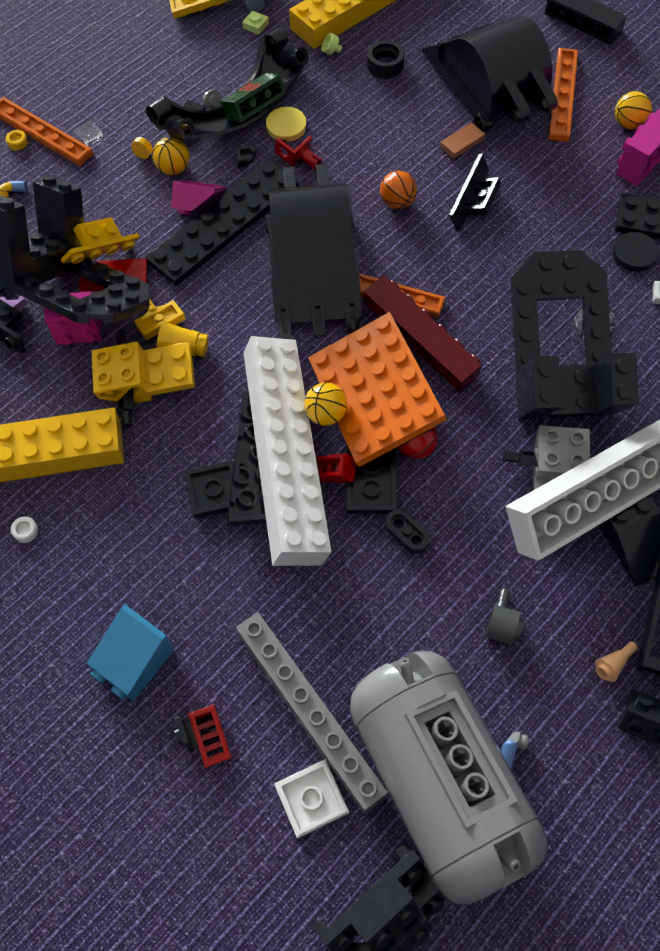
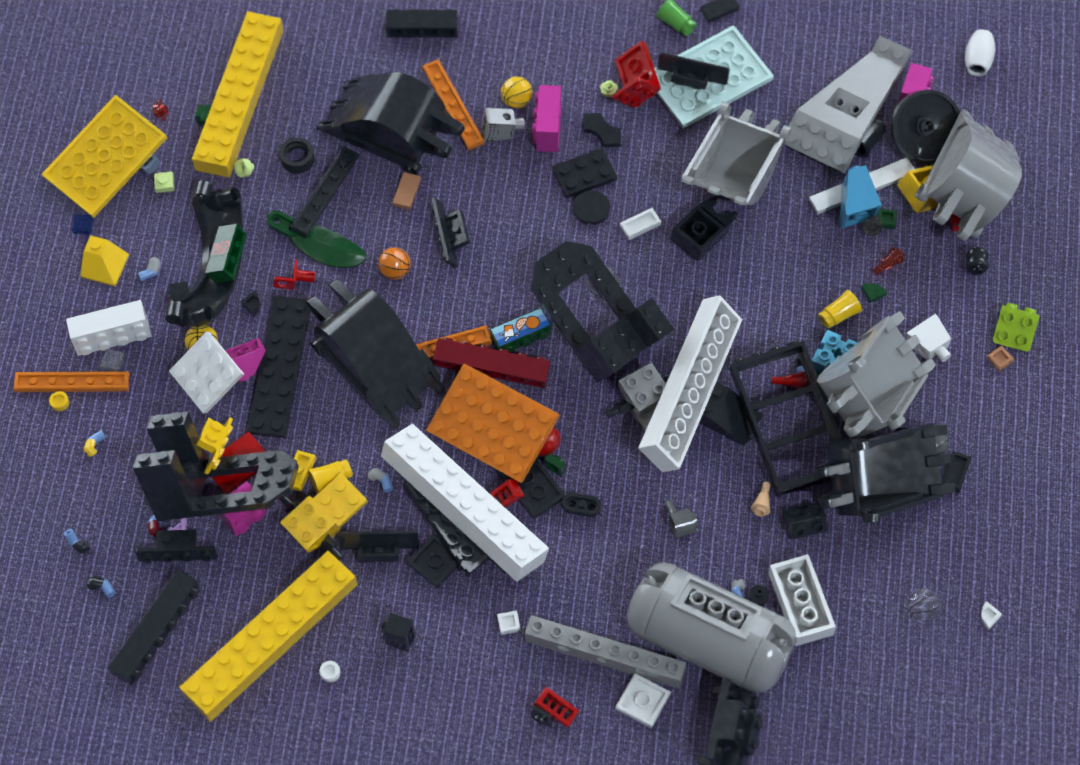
camera: 35 degrees left, 0 degrees up
(102, 100) = (109, 328): none -> white brick
(113, 534) = (398, 631): none -> black brick
(129, 654) = (470, 694): dark azure slope -> none
(142, 147) = (169, 346): yellow tile -> none
(149, 182) = (206, 372): none -> white plate
(150, 51) = (103, 261): none -> yellow slope
(161, 18) = (82, 224): none -> clear blue tile
(172, 437) = (378, 545): none -> black bracket
(184, 81) = (152, 269): none -> arm
(212, 99) = (190, 273): light grey plate -> none
(229, 371) = (381, 476): none -> arm
(236, 604) = (509, 622): none -> white tile
(286, 124) = (262, 257): light yellow tile -> none
(325, 404) = (472, 455): yellow piece -> none
(344, 136) = (321, 244): none -> dark green plant
(385, 99) = (325, 192): none -> black tile
(410, 471) = (555, 464): none -> dark green plate
(476, 321) = (521, 331): none -> brick
(529, 772) = (759, 595): none -> black tile
(584, 815) = (802, 599): none -> white brick
(596, 128) = (500, 124): none -> light grey torso

